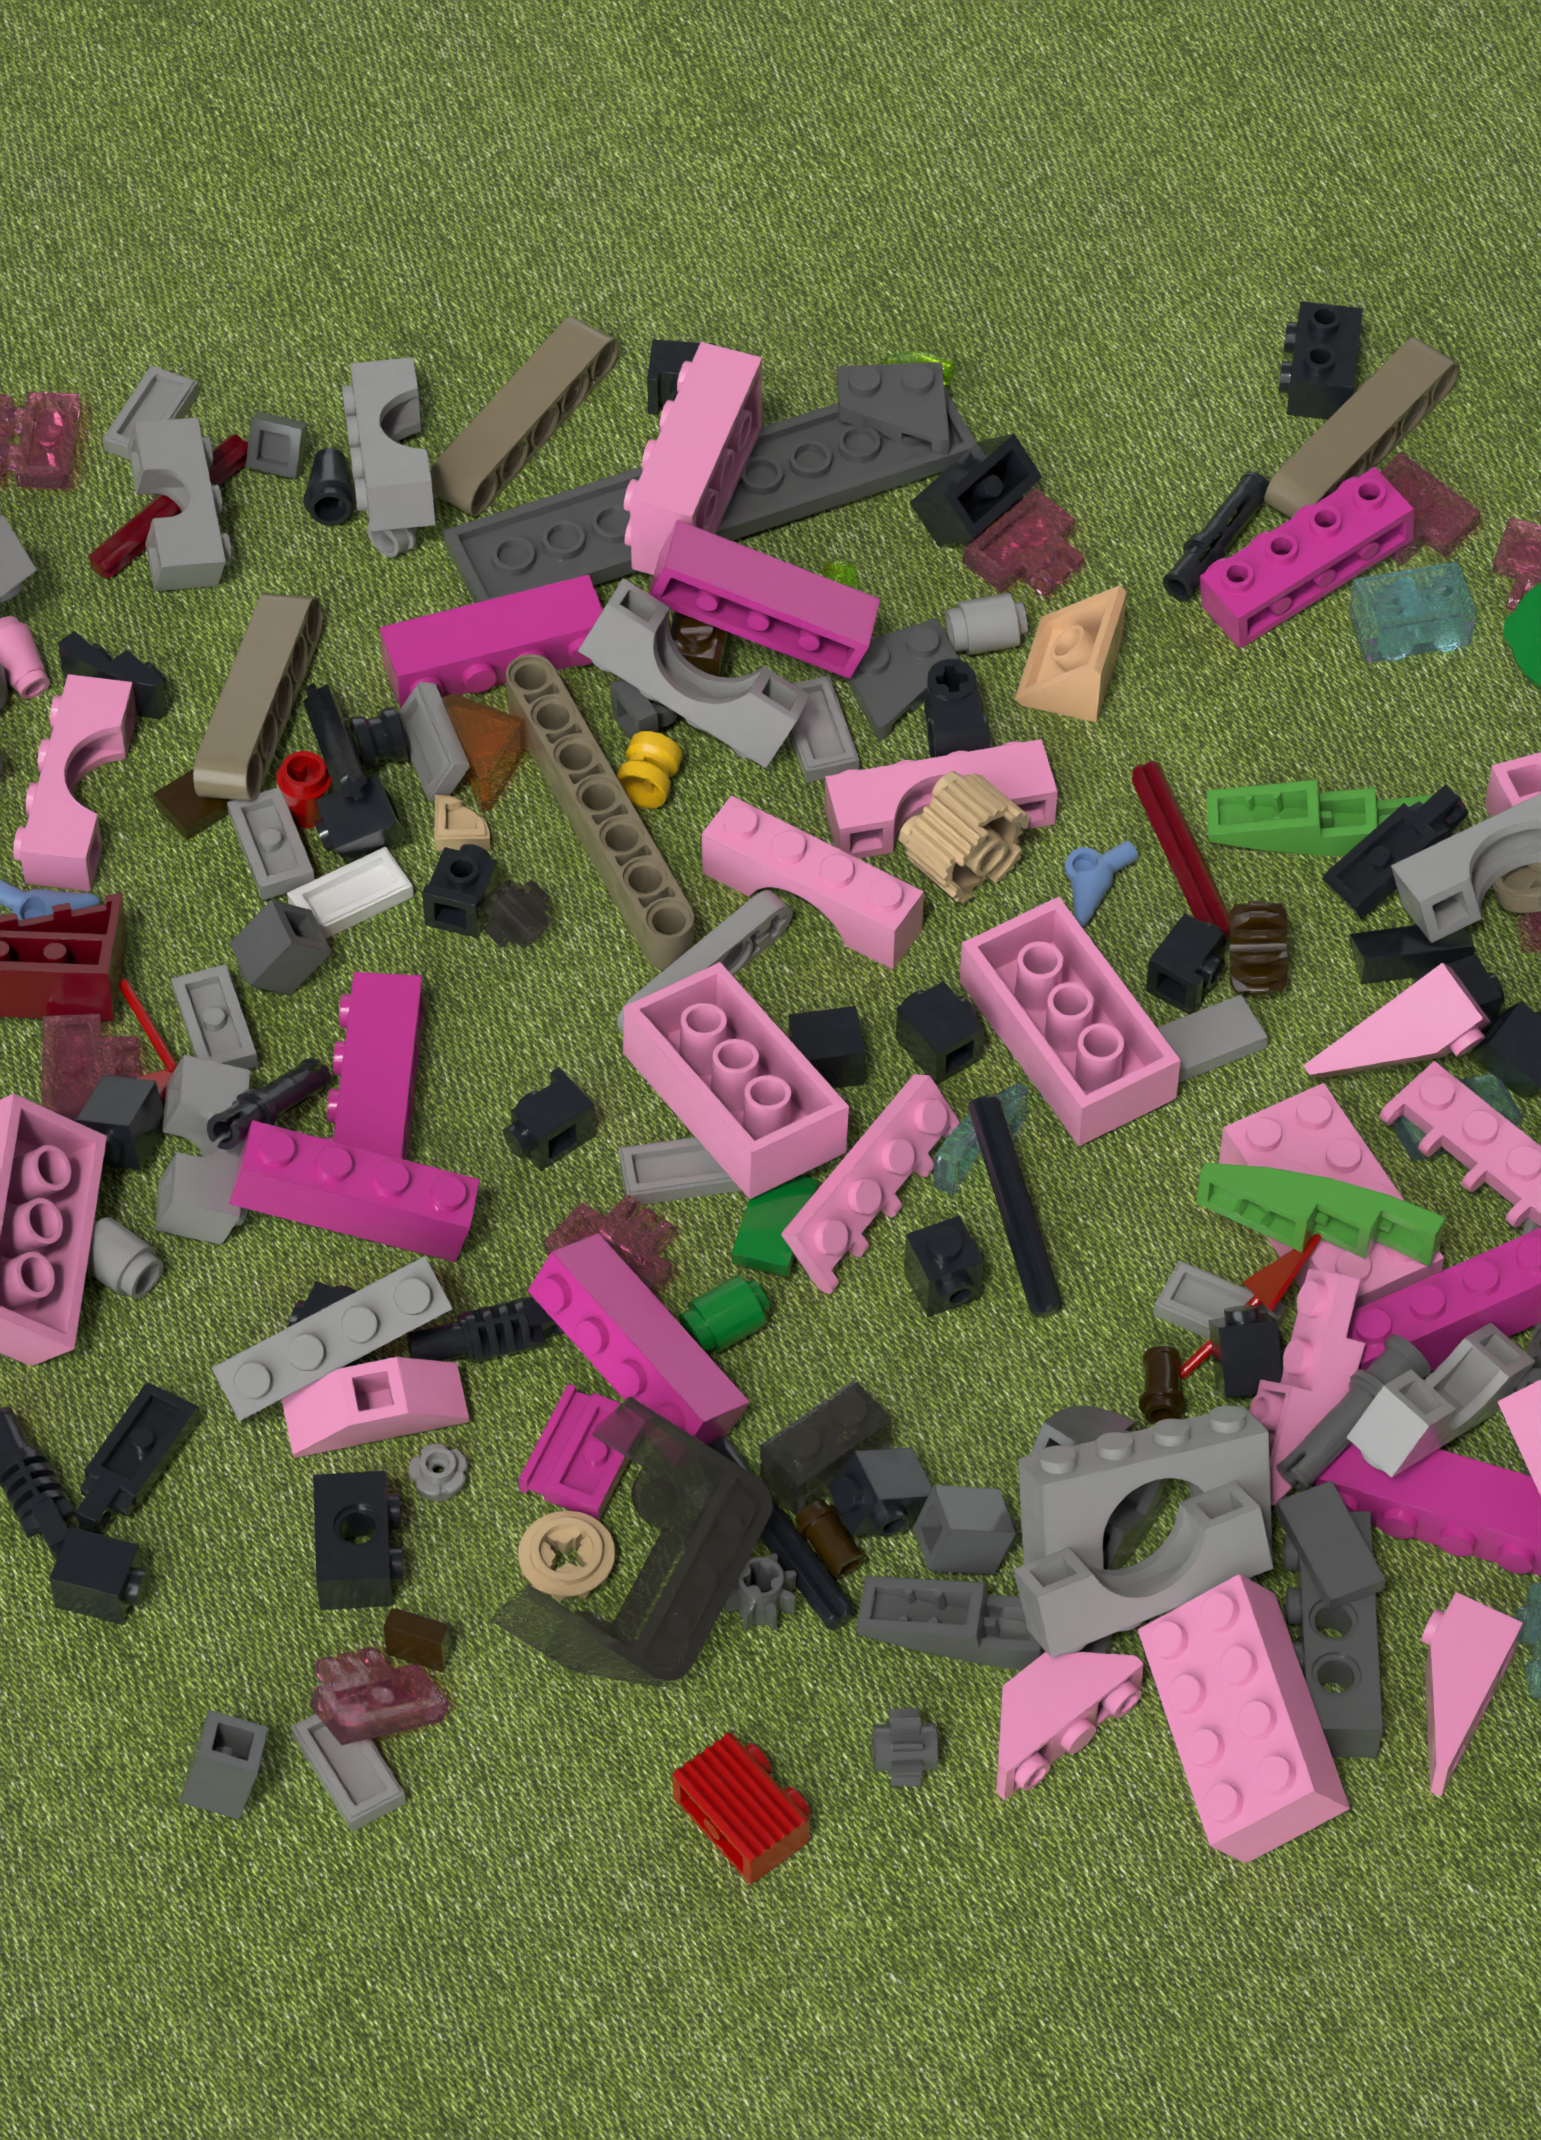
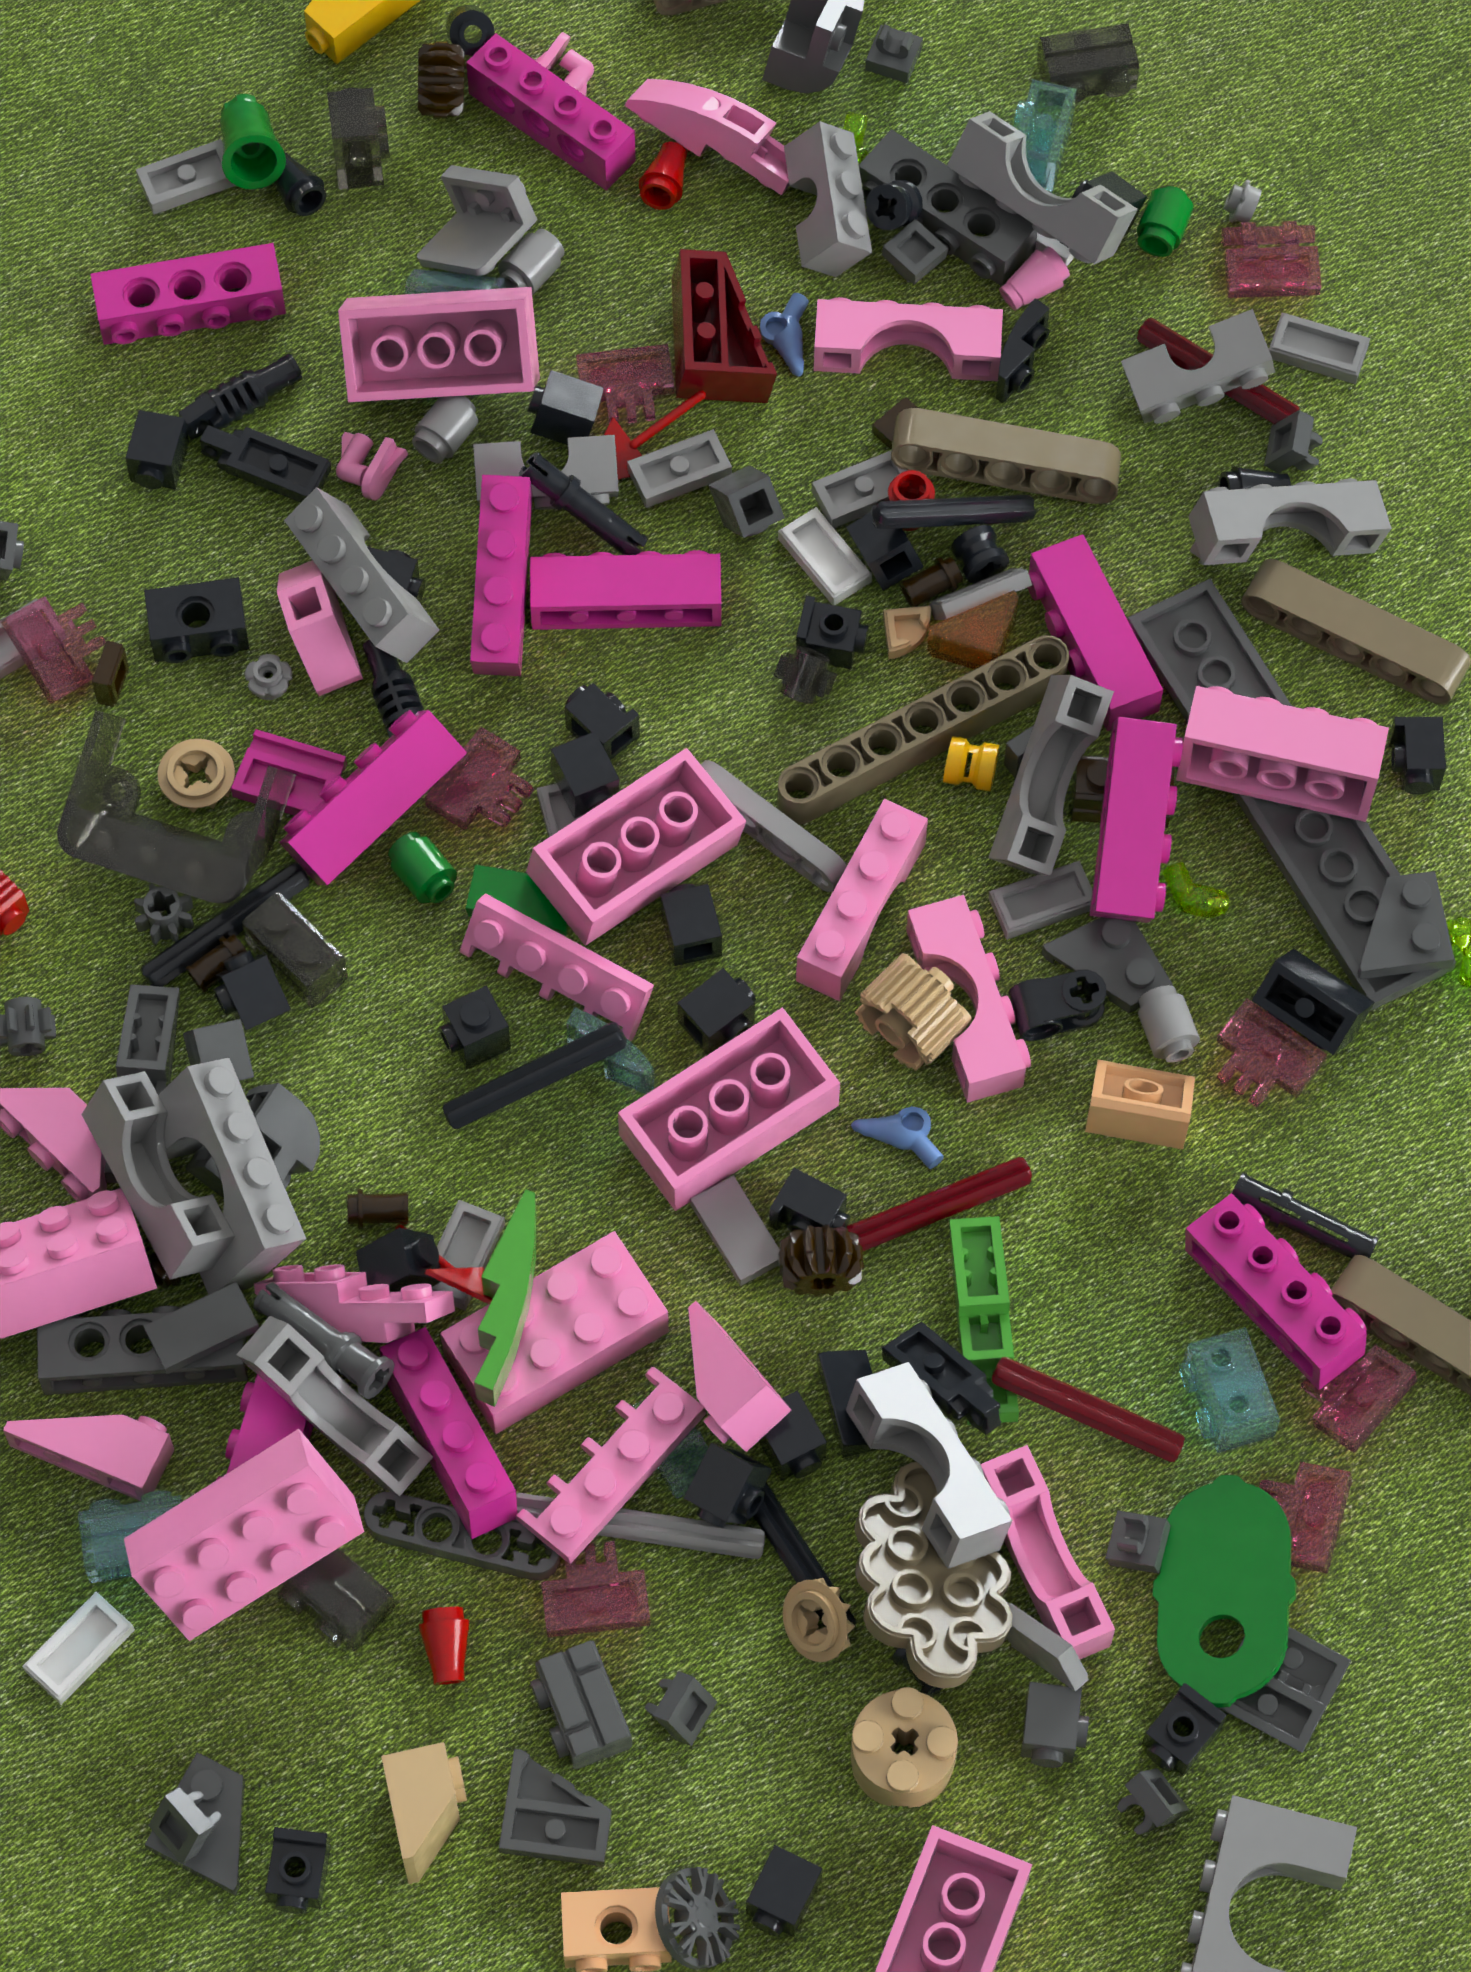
camera: 85 degrees right, 10 degrees up
(127, 1366) = (378, 474): none -> bright pink piece
(402, 780) = (931, 582): none -> dark brown pin
(632, 1128) = (584, 773): none -> black brick
(1430, 735) = (1088, 1409): none -> dark red axle

